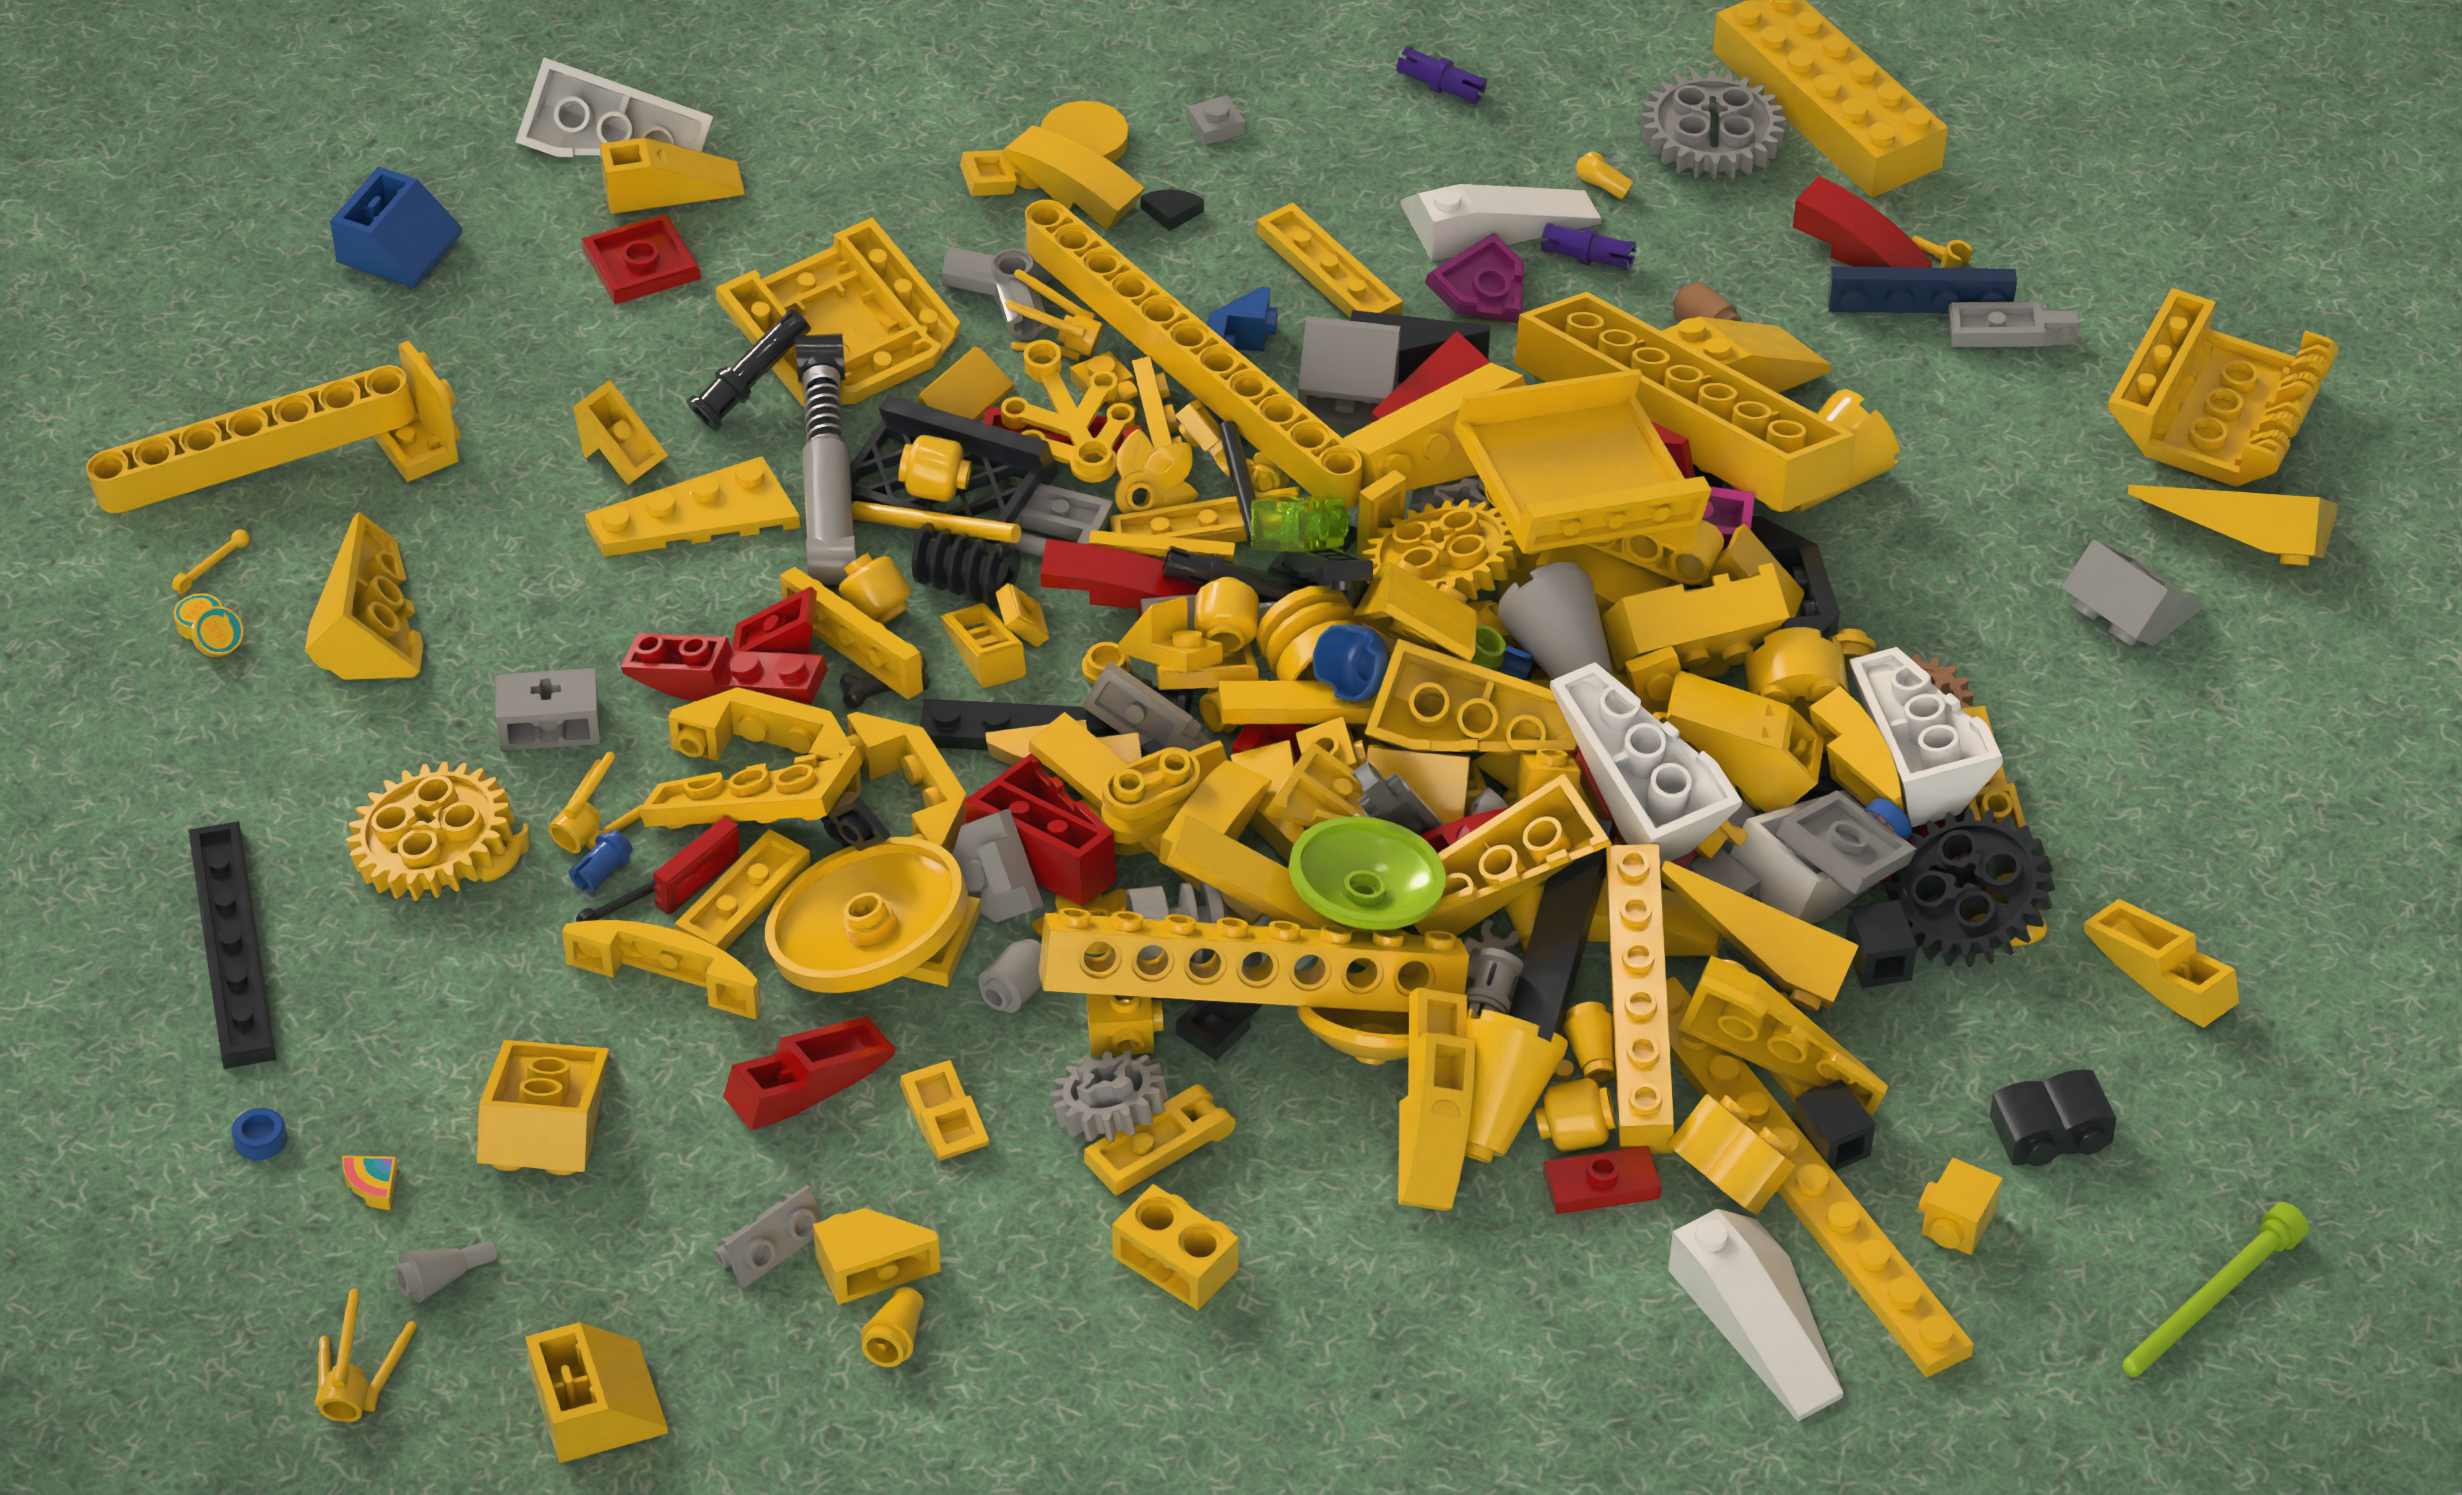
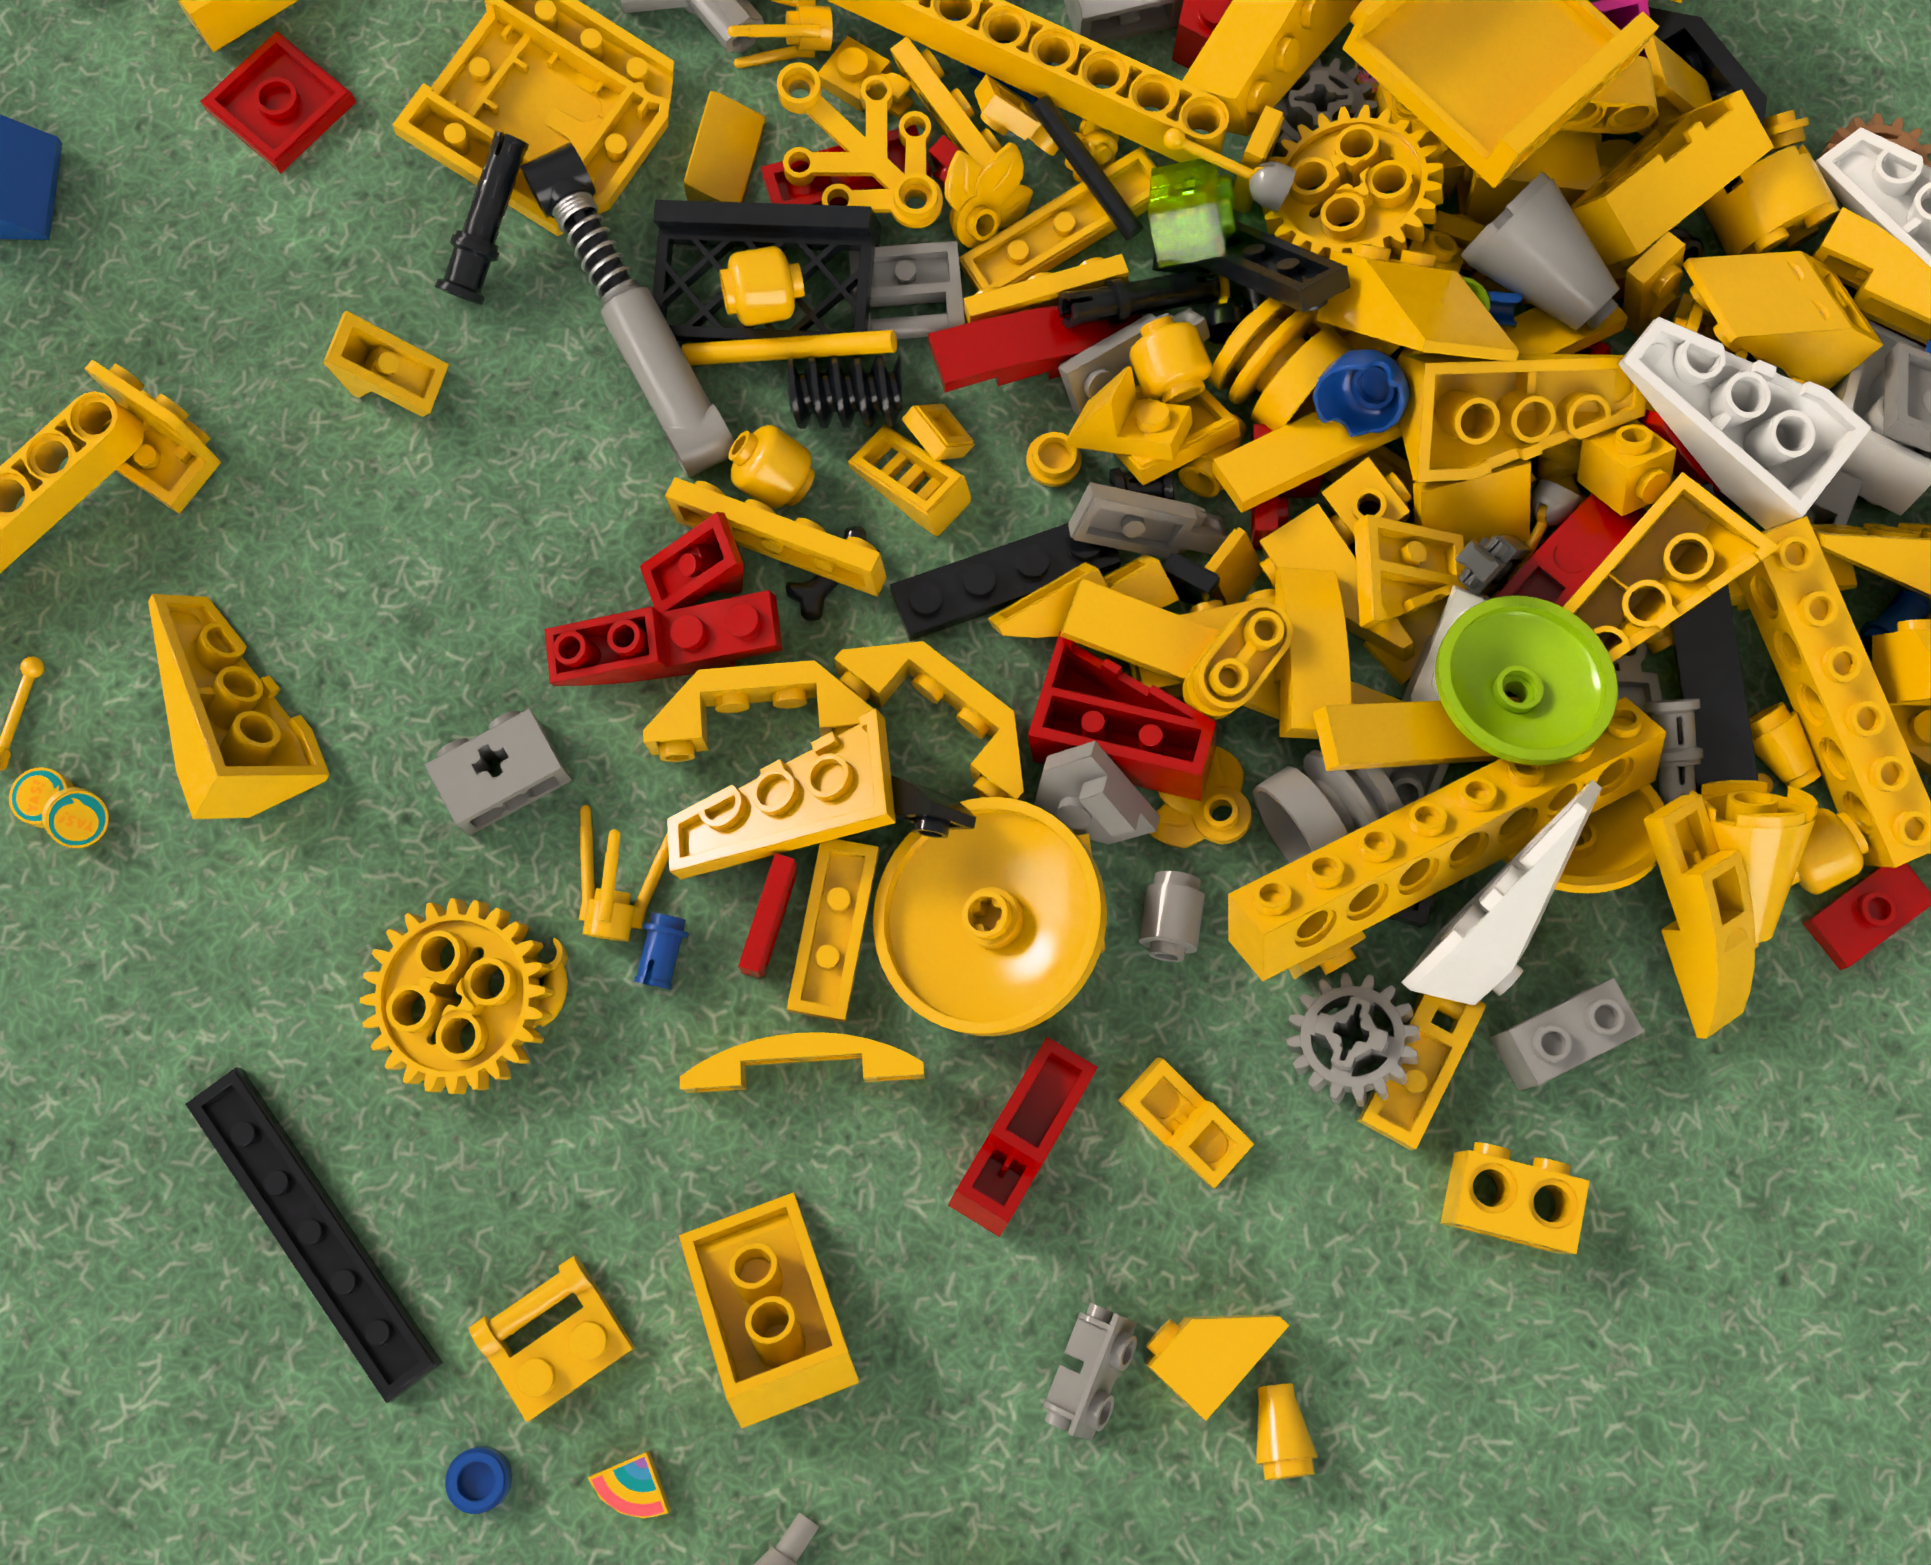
camera: 25 degrees left, 30 degrees up
(369, 1082) = (564, 1355): none -> yellow plate
(591, 915) = (734, 946): black hinge -> none
(713, 504) = (525, 415): yellow wing -> none
(1261, 1037) = (1491, 932): none -> white wedge
(1285, 1154) = (1566, 1035): none -> light grey brick
(1370, 523) = (1267, 182): none -> hinge

